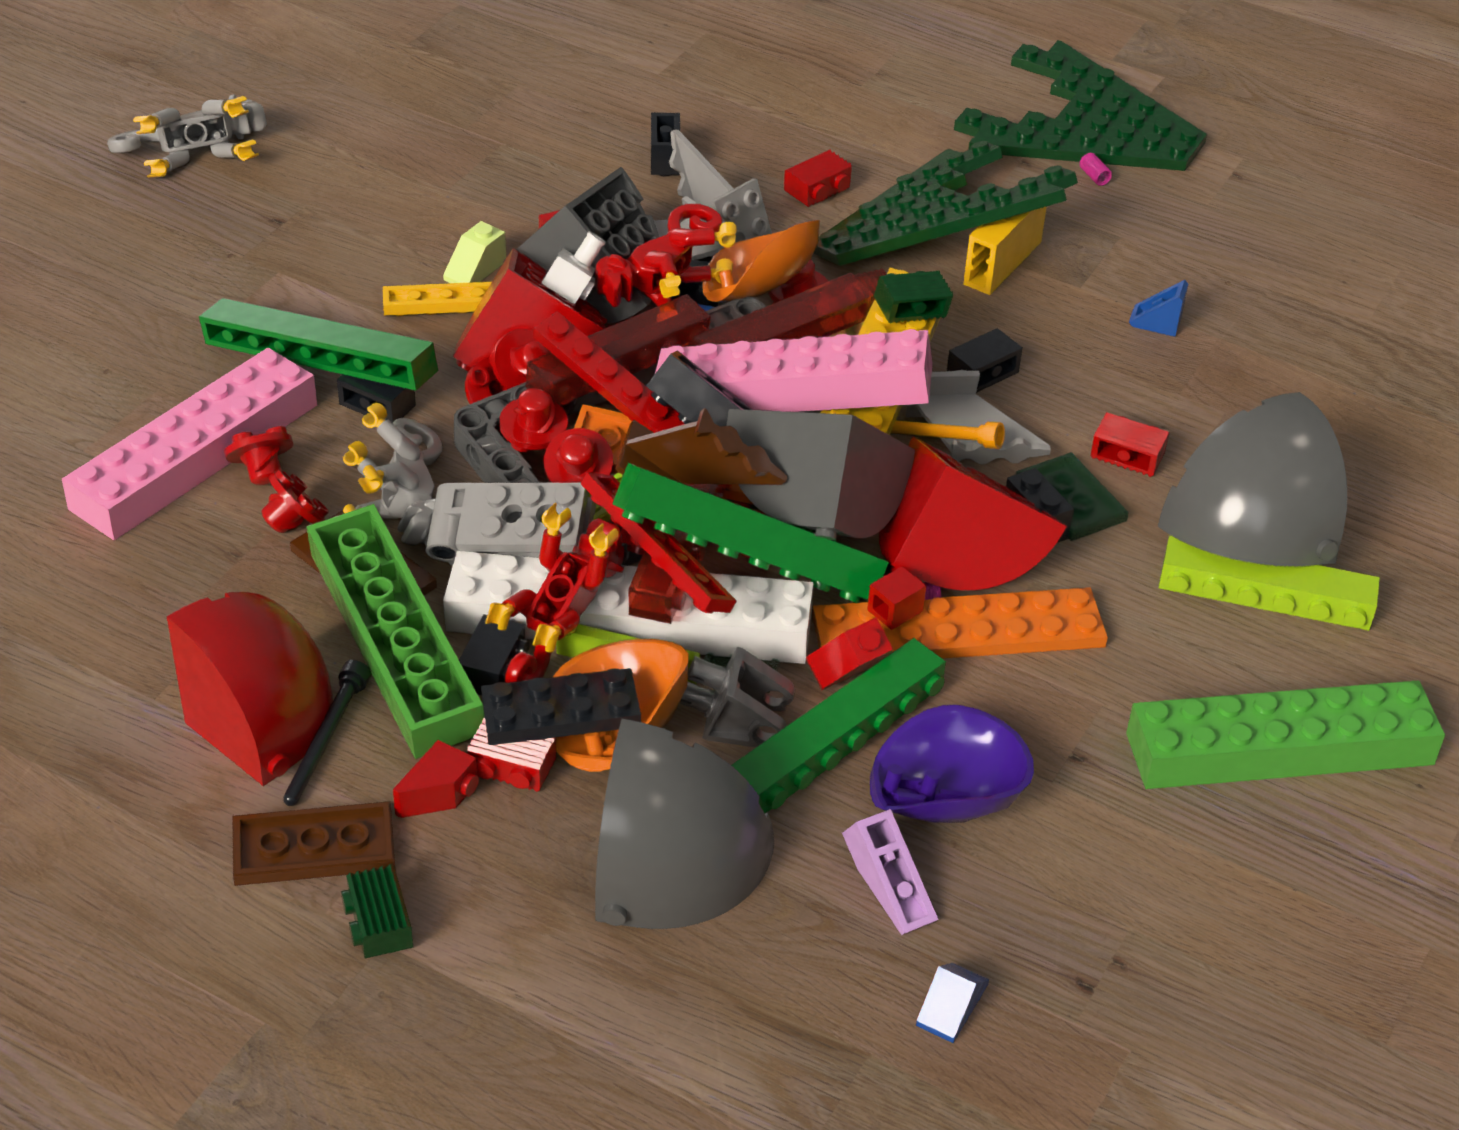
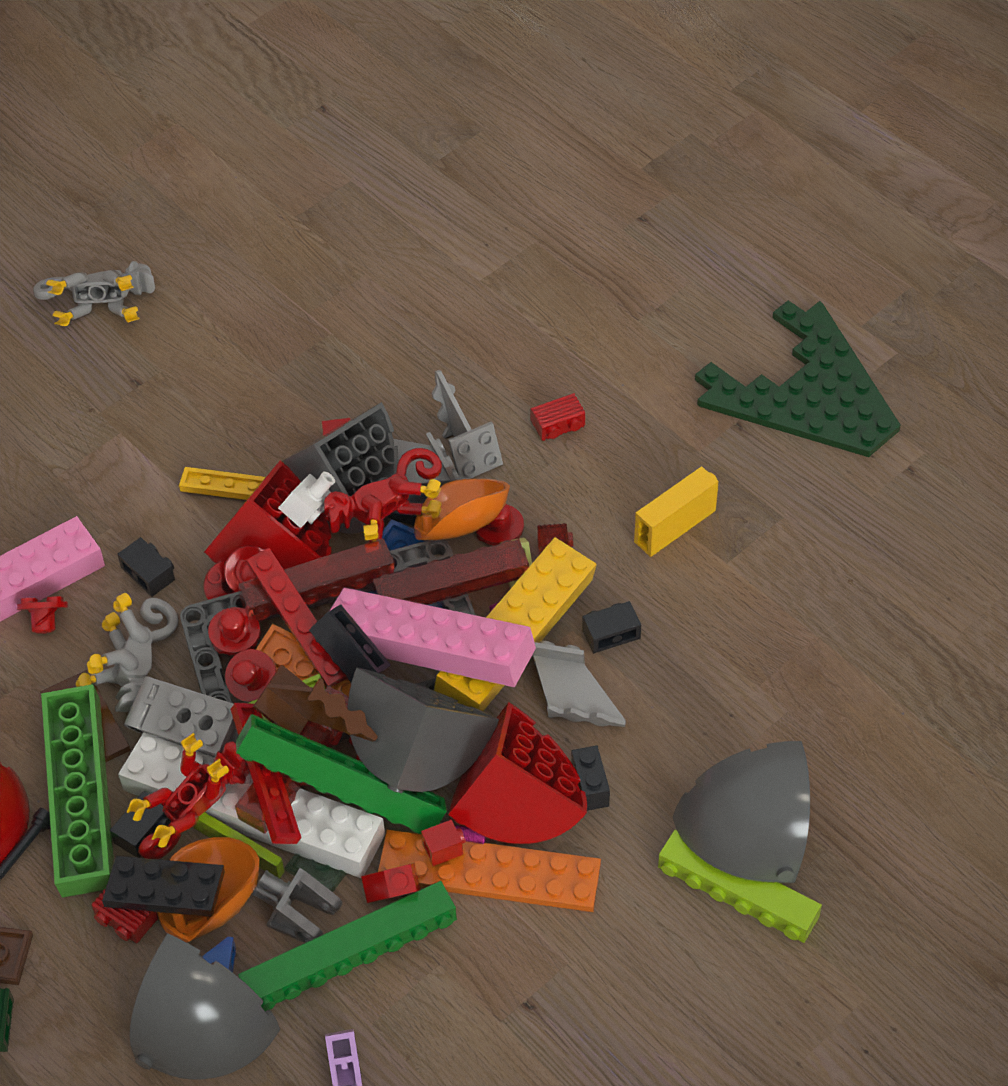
camera: 20 degrees right, 10 degrees up
(291, 503) = (50, 659): red plate -> none
(320, 343) = (114, 520): green brick -> none
(436, 782) = (65, 923): red slope -> none
(476, 254) = (264, 449): yellowish green slope -> none
(661, 145) = (449, 359): black brick -> none
(913, 296) = (552, 575): dark green brick -> none
(928, 206) = (620, 476): dark green wing -> none
(951, 766) = (420, 1000): dark purple piece -> none
(990, 434) = (572, 708): light orange piece -> none
(1092, 503) = (628, 768): clear green tile -> none
(1095, 169) = (790, 444): dark pink piece -> none
(1129, 444) = (691, 730): red brick -> none
(1161, 311) = (776, 604): blue slope -> none
(1283, 734) = (685, 1026): bright green brick -> none

